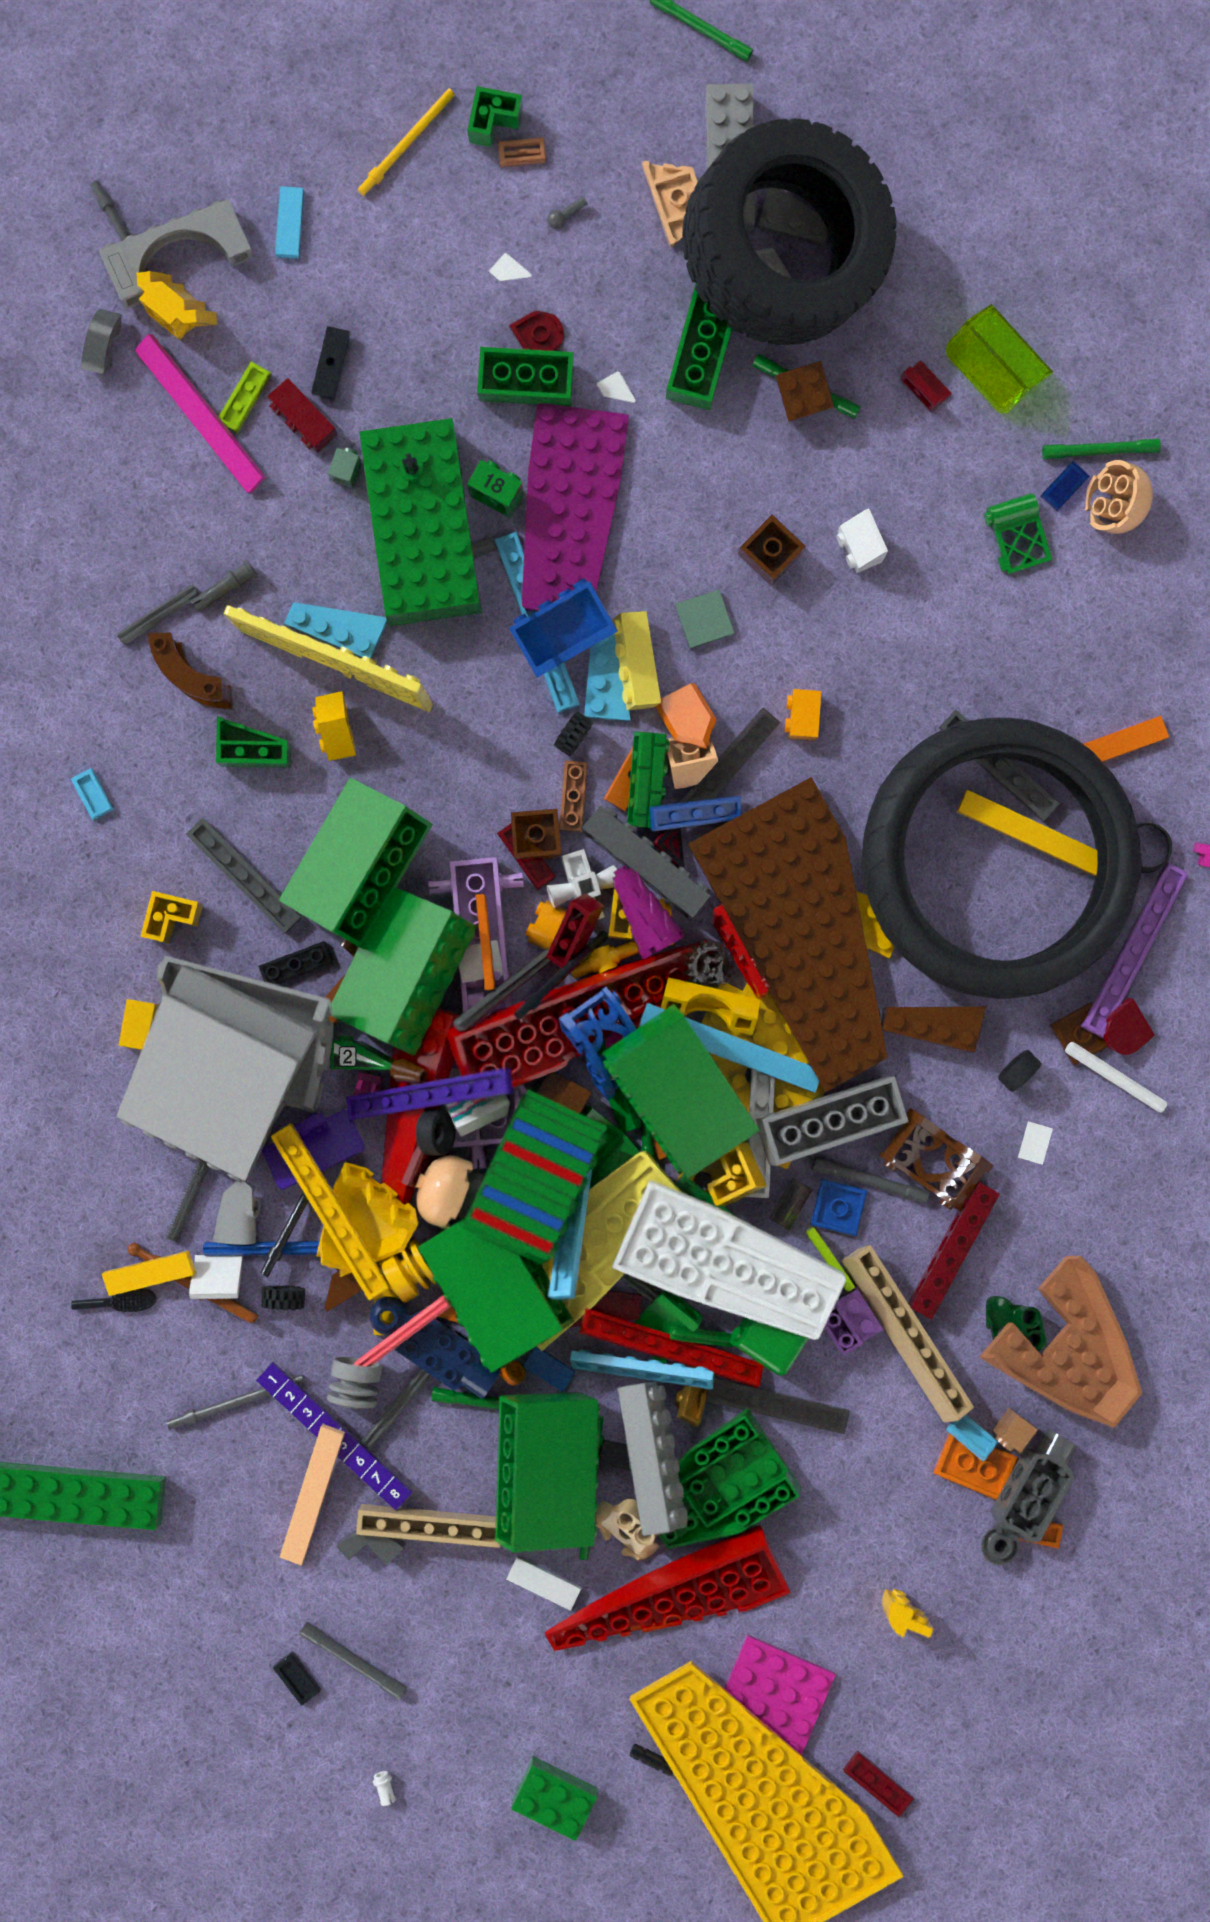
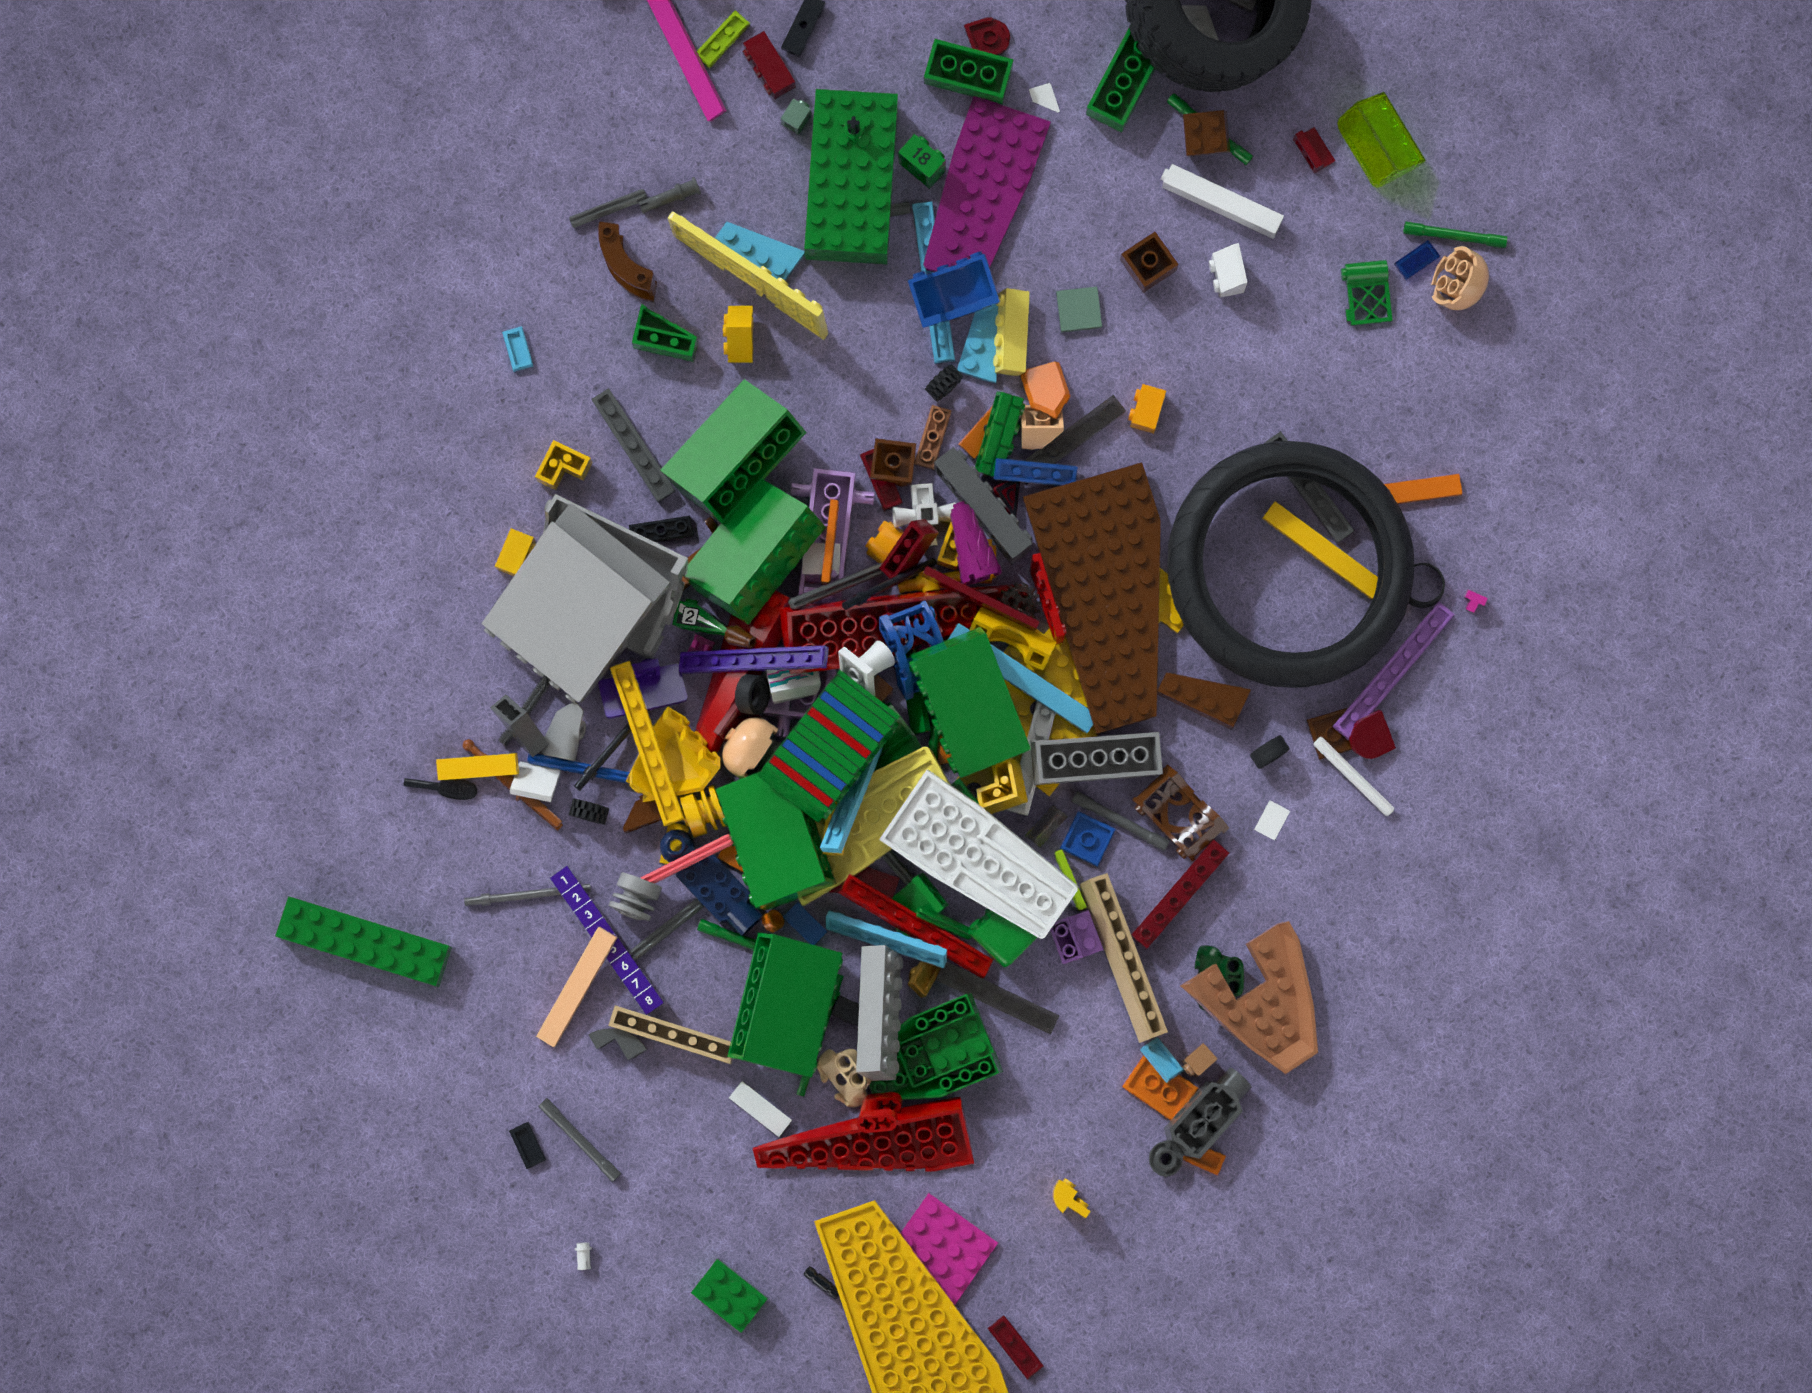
camera: 15 degrees right, 5 degrees down
(184, 1218) = (519, 725): none -> dark grey slope
(553, 1080) = (869, 664): none -> white plant
(665, 1566) = (872, 1112): none -> red connector
(666, 970) = (980, 598): none -> dark red tile
(837, 464) = (1221, 201): none -> white brick

